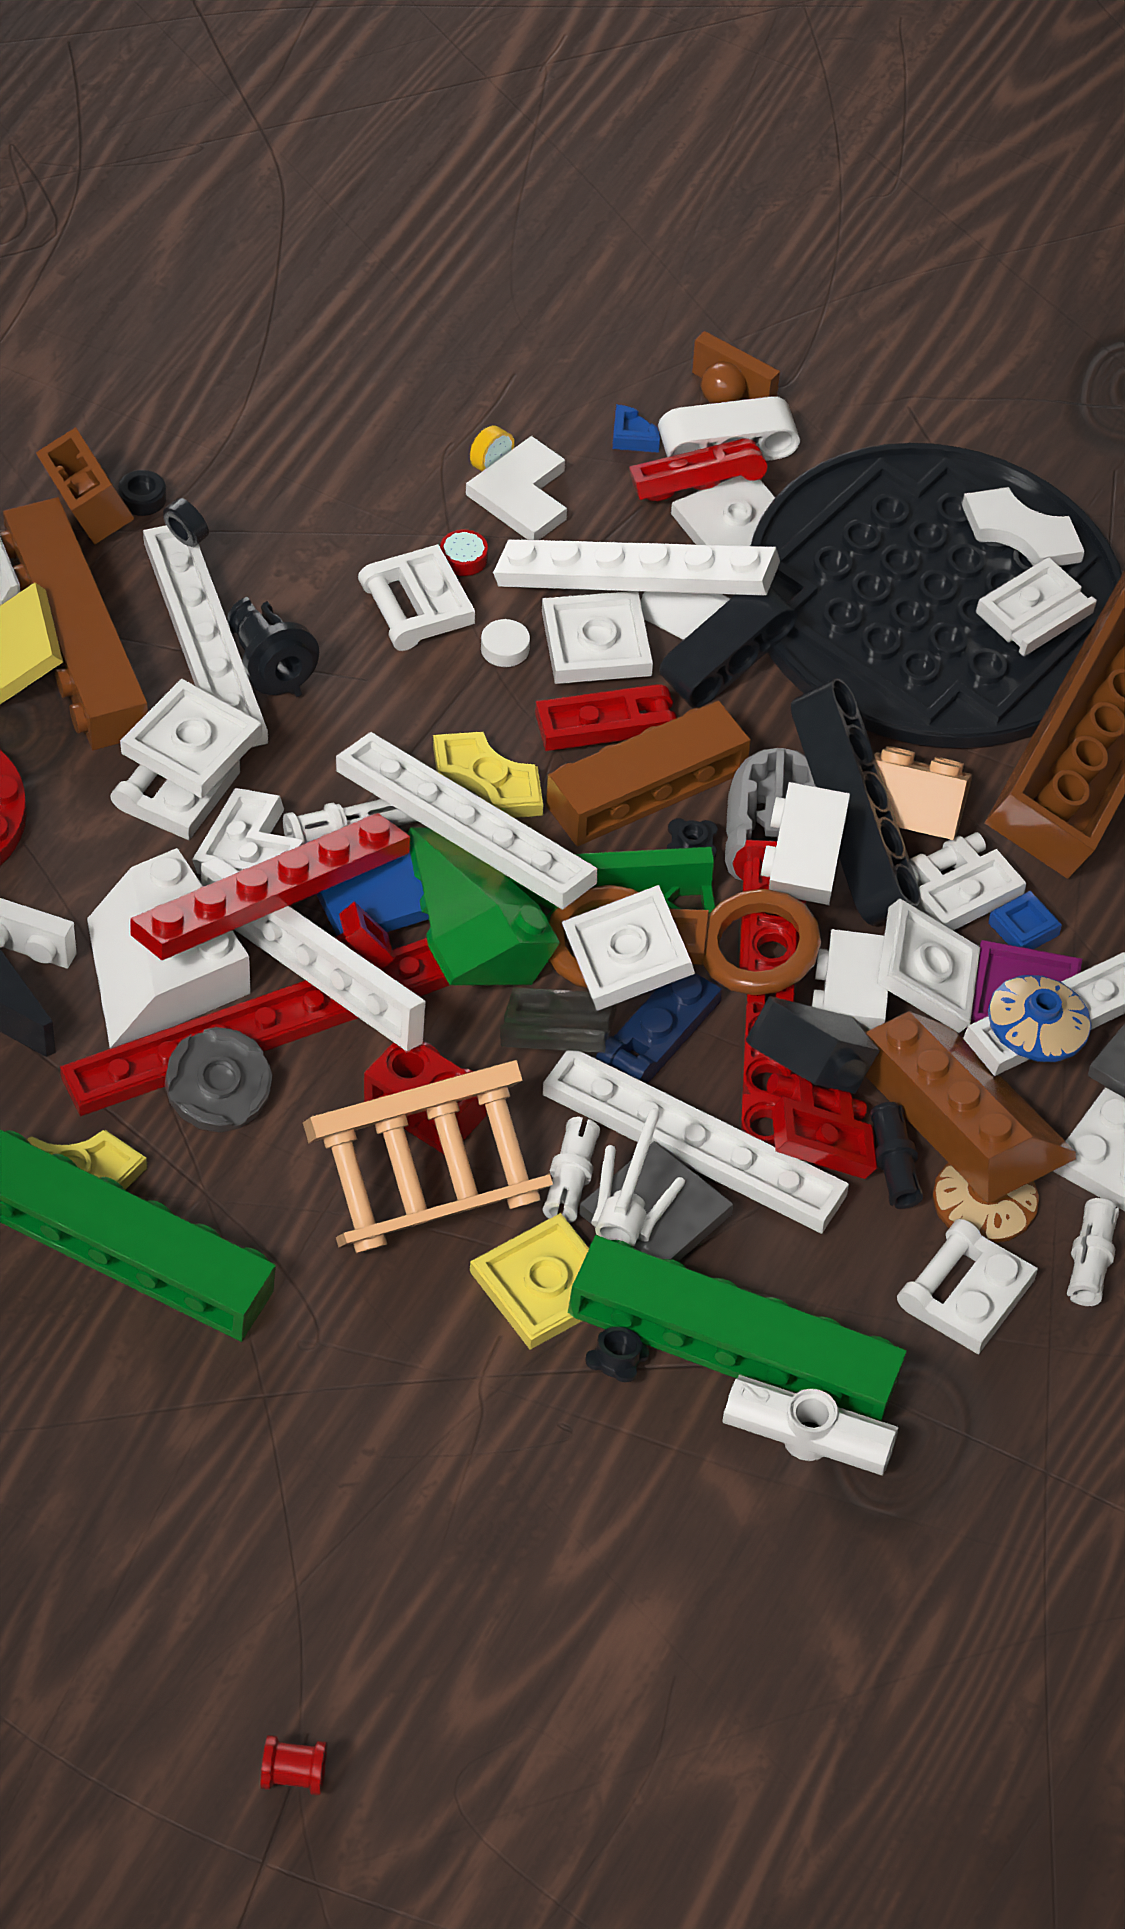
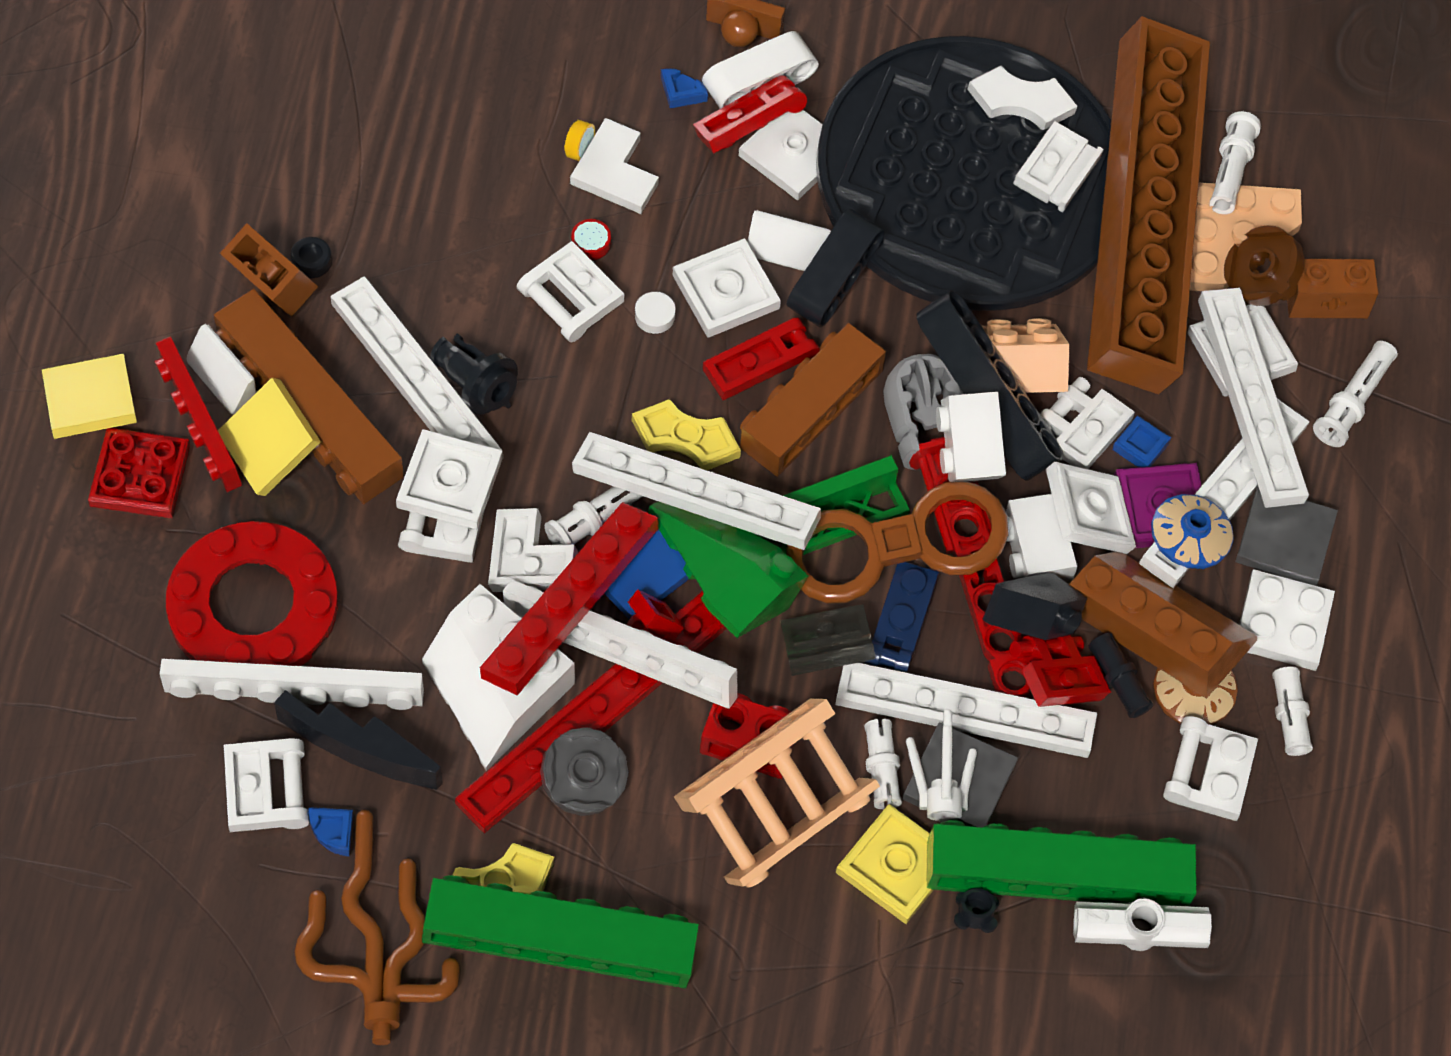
camera: 20 degrees left, 10 degrees up
(185, 522) = (367, 283): black tile -> none
(628, 947) = (864, 566): white plate -> none
(637, 567) = (741, 221): white plate -> none
(700, 832) = (860, 456): black plate -> none

